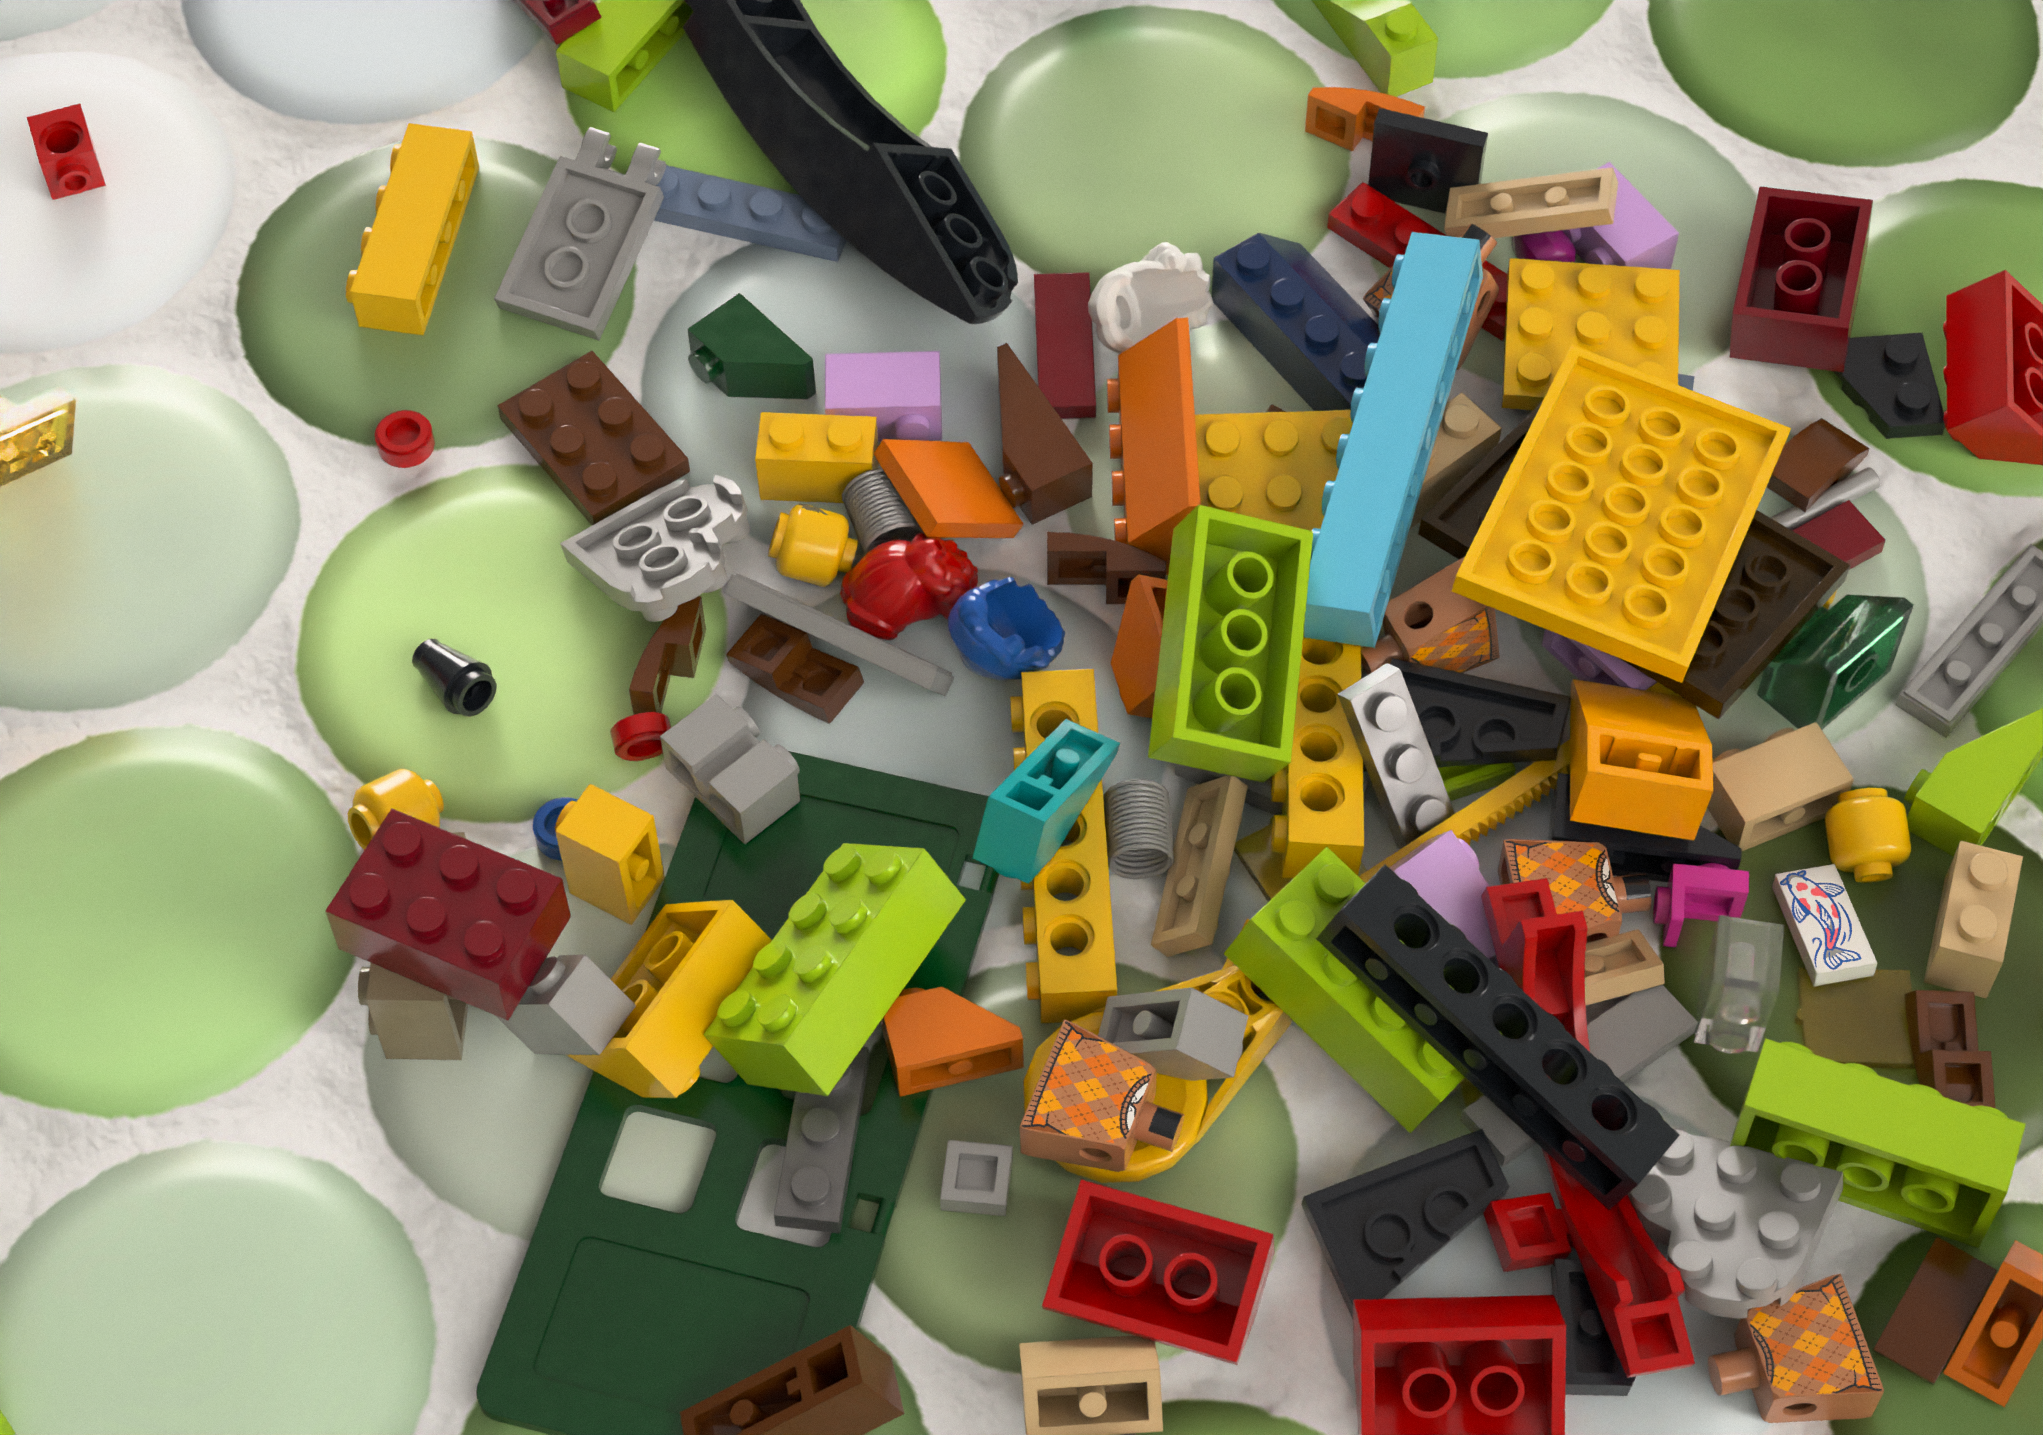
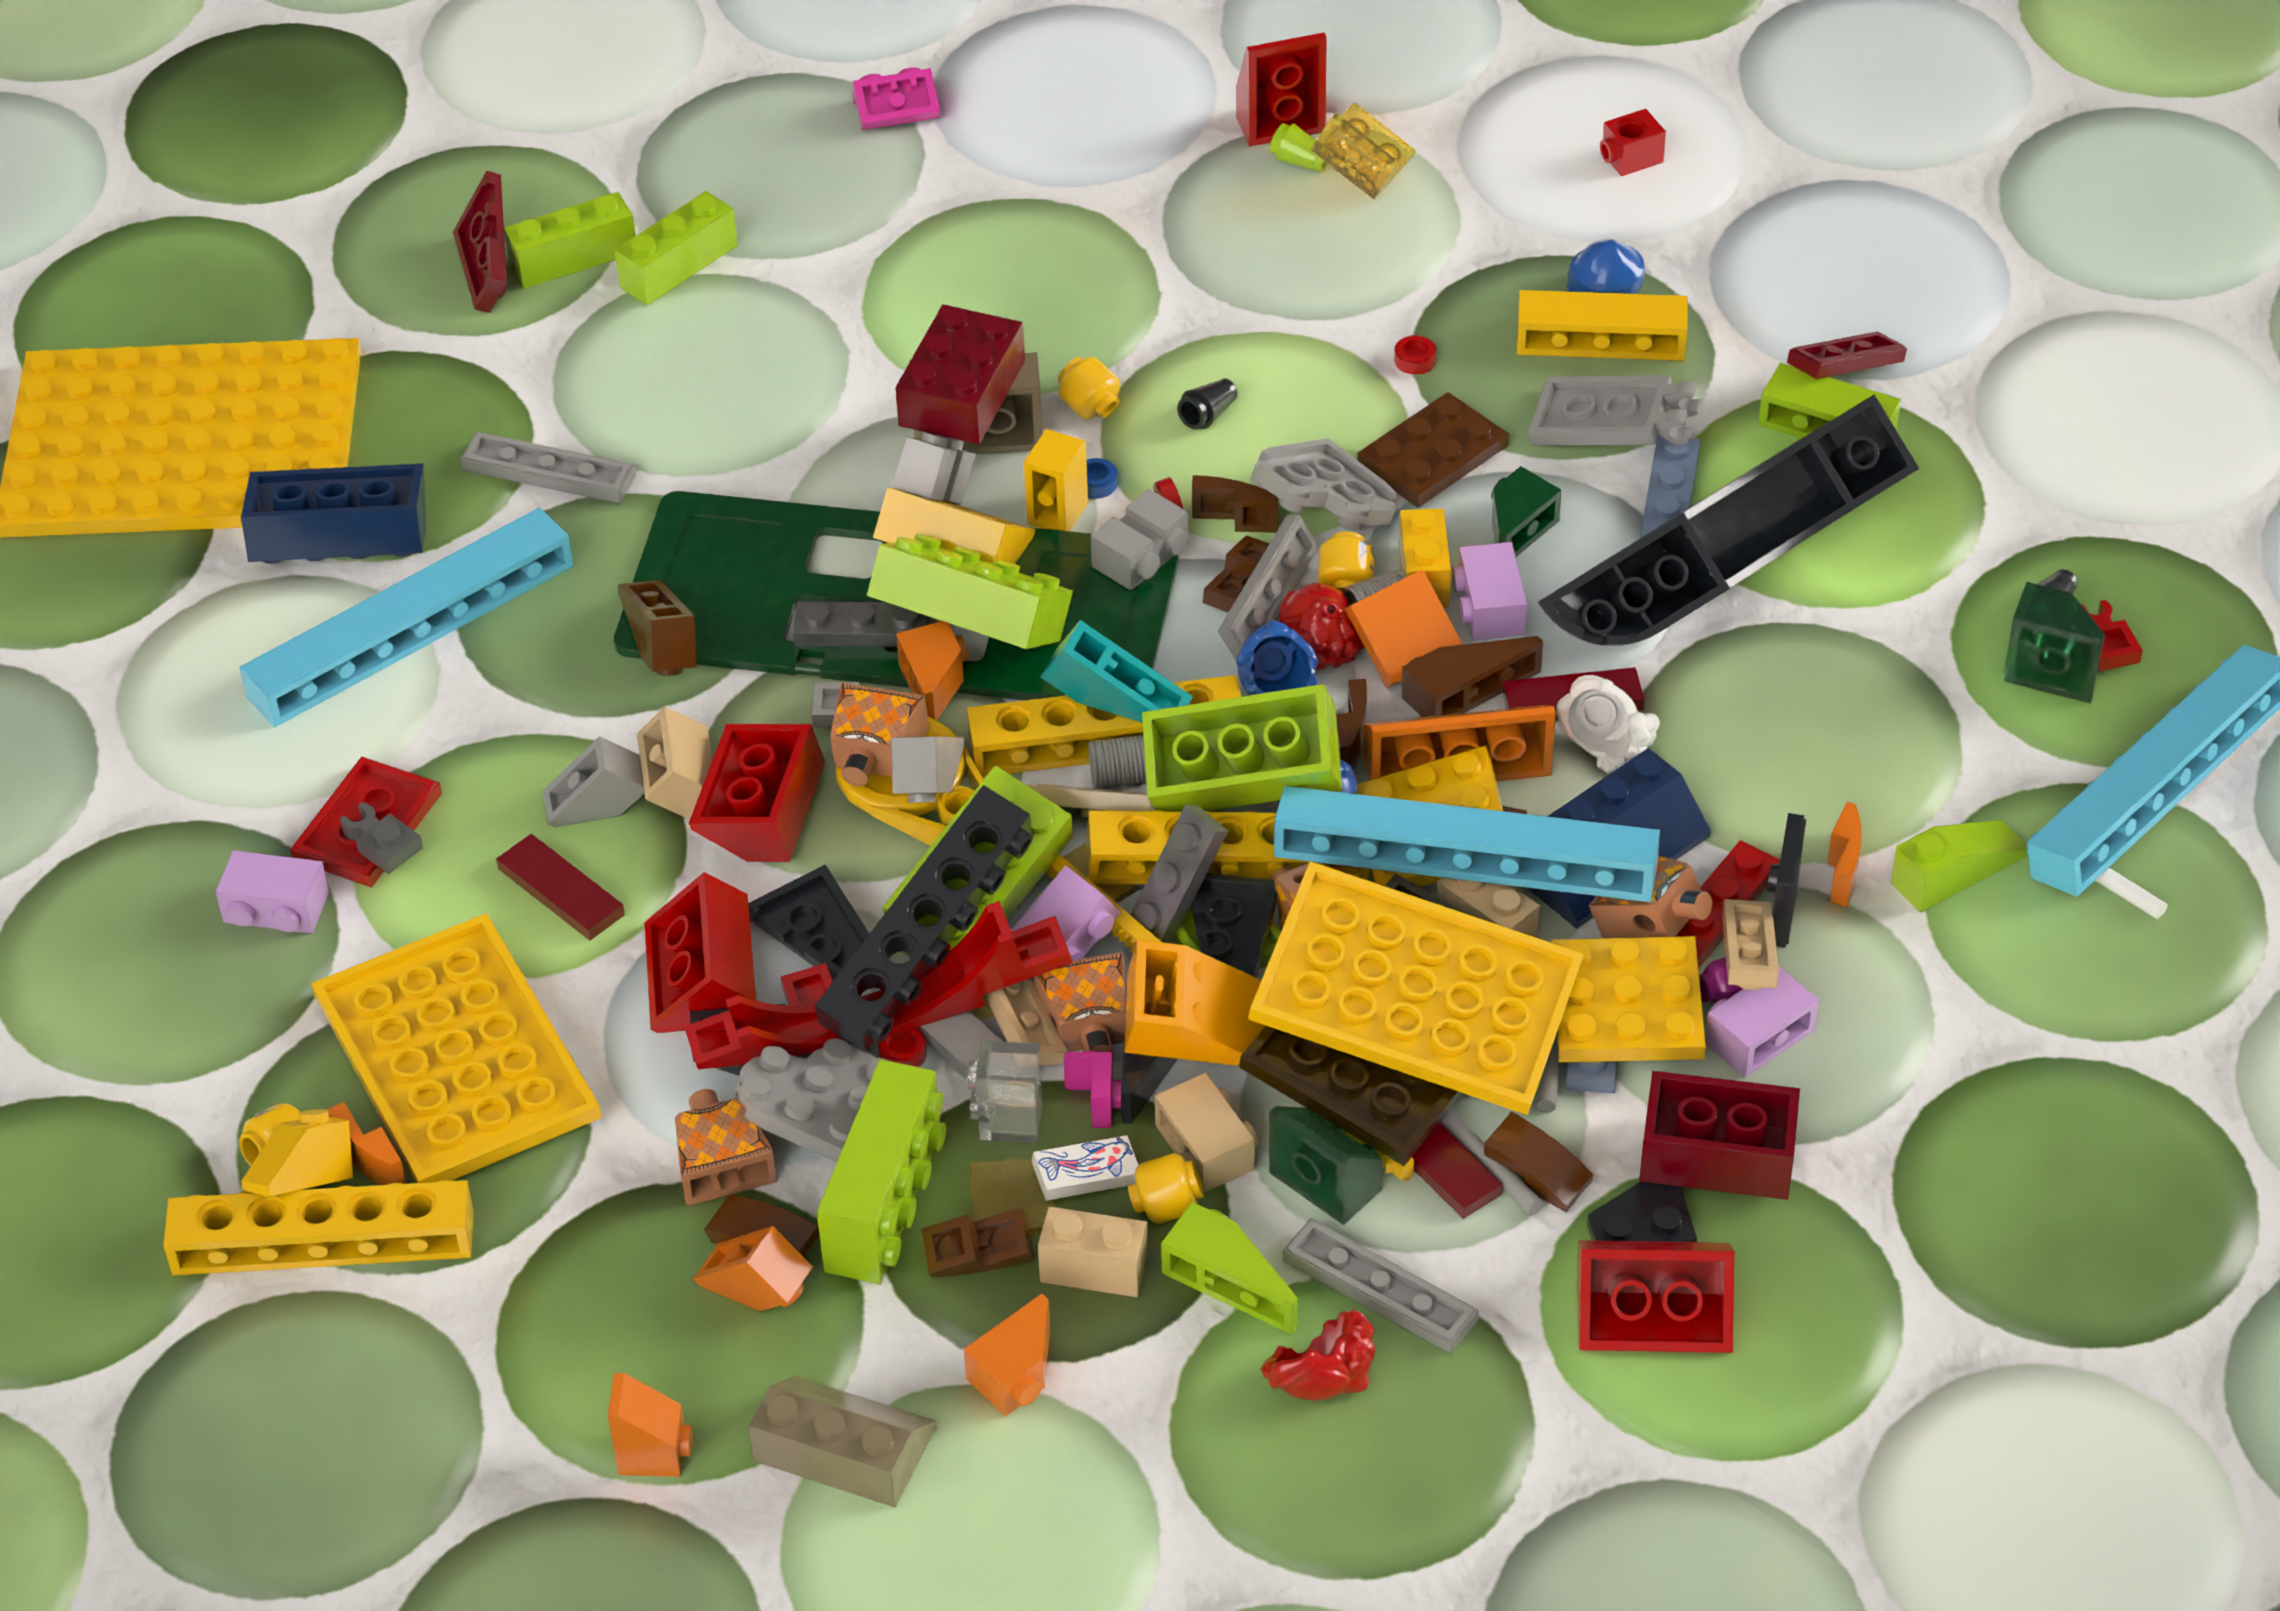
camera: 85 degrees right, 10 degrees down
(322, 211) = (1606, 268): none -> blue hair

